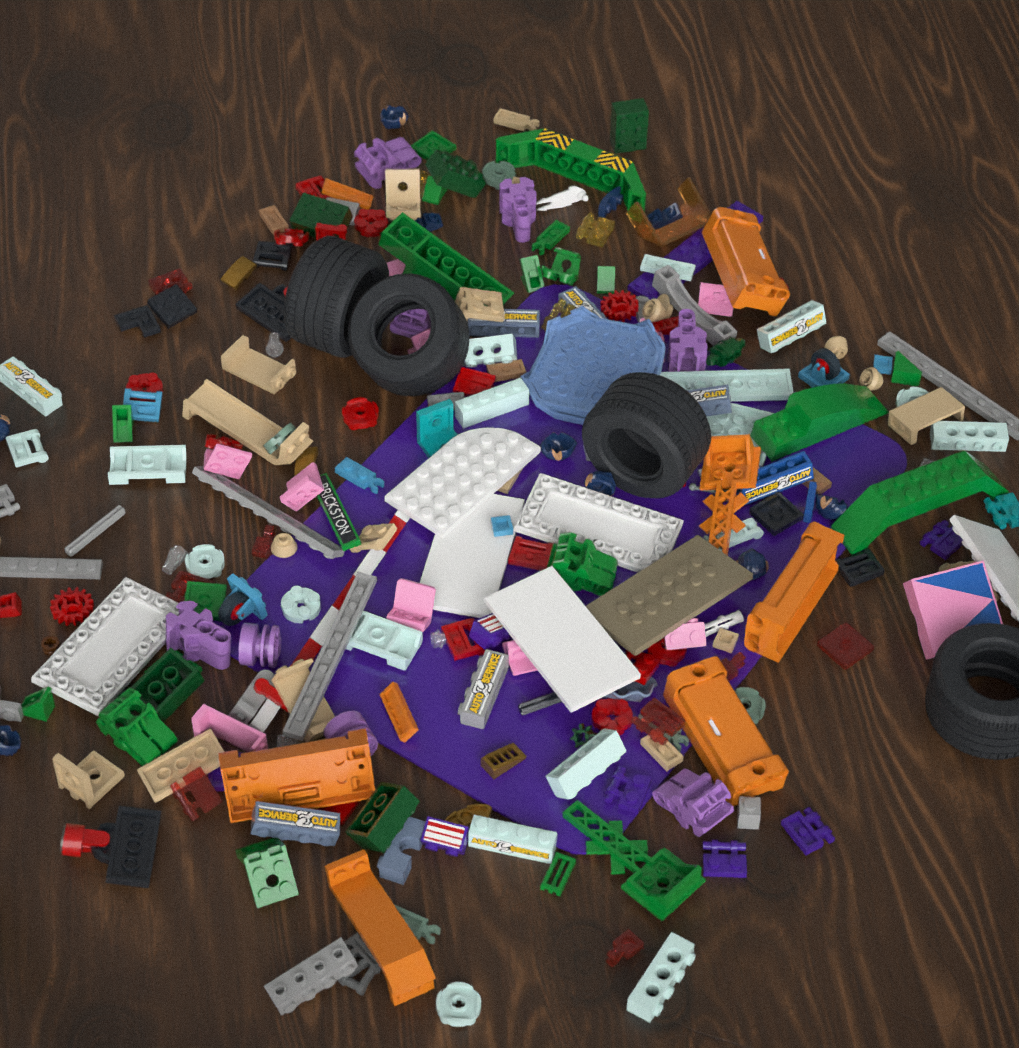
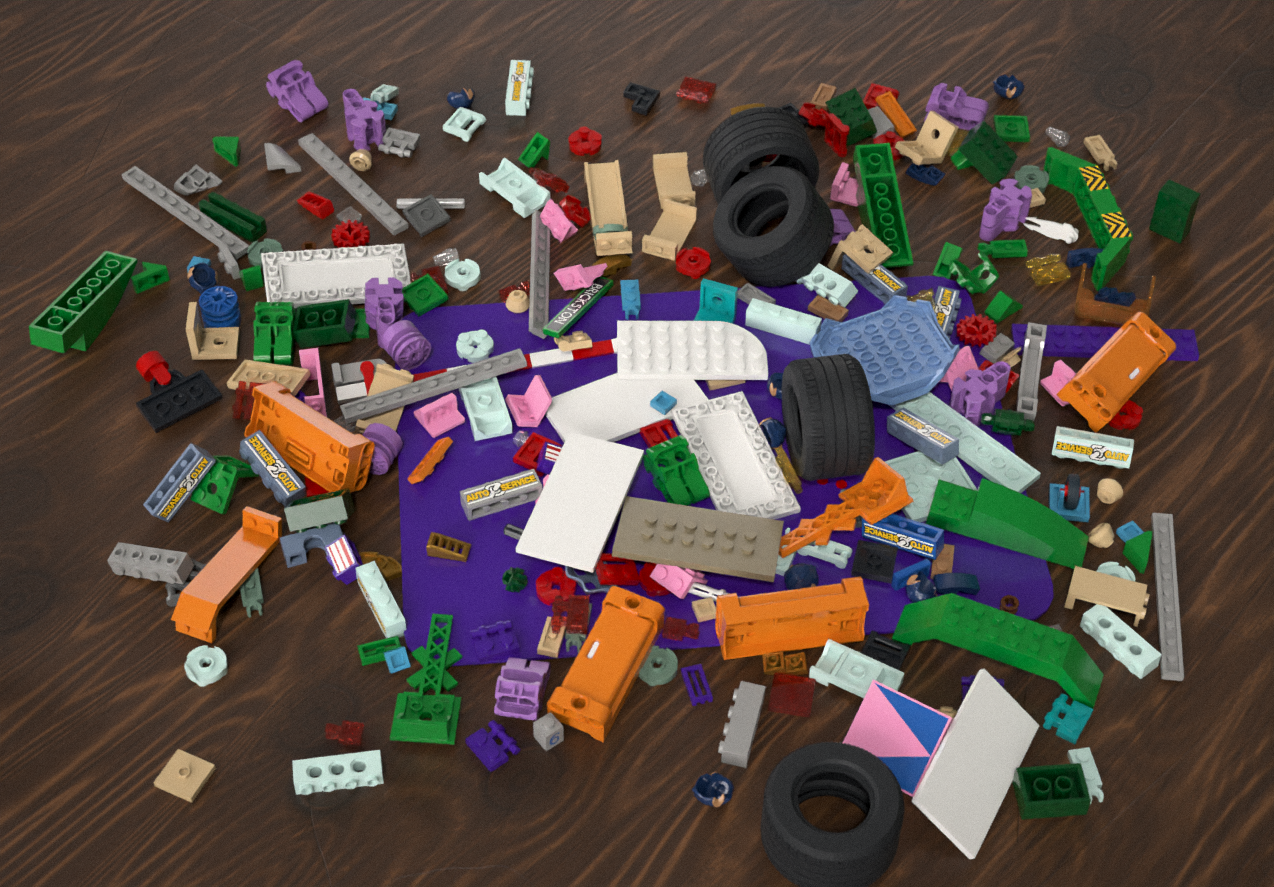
camera: 50 degrees right, 0 degrees up
(10, 676) = (255, 249): none -> sand green plate
(42, 594) = (349, 214): none -> clear tile
(60, 739) = (220, 307): none -> blue wheel
(108, 541) = (426, 215): none -> dark grey tile
(142, 409) = (563, 154): dark azure plate -> none
(169, 437) = (551, 180): none -> clear red plate
(172, 306) = (674, 103): black plate -> none
(241, 602) = (434, 311): plate -> none
(251, 896) = (179, 482): none -> sand blue brick
(309, 403) = (670, 230): none -> tan panel
(355, 675) = (440, 415): none -> bright pink bracket
(473, 130) = (1058, 136): none -> clear cone
(473, 382) = (791, 298): red plate -> none
(583, 866) = (397, 659): none -> dark azure plate
(586, 764) = (487, 596): light aqua brick -> none
(647, 499) = (788, 470): none -> clear yellow plate
(653, 263) = (1056, 332): light aqua plate -> none
(653, 310) = (993, 351): tan cone -> none
(782, 697) = (701, 698): none -> dark purple tile
(803, 834) = (565, 781): dark purple plate -> none
(814, 630) = (789, 664): none -> pearl gold slope
(841, 483) = (954, 582): none -> dark blue slope
(849, 691) = (742, 725): none -> light grey brick
(865, 595) = (853, 670): none -> light aqua piece
(883, 467) = (1009, 599): none -> reddish brown bush
(895, 747) = (713, 789): none -> dark blue hair

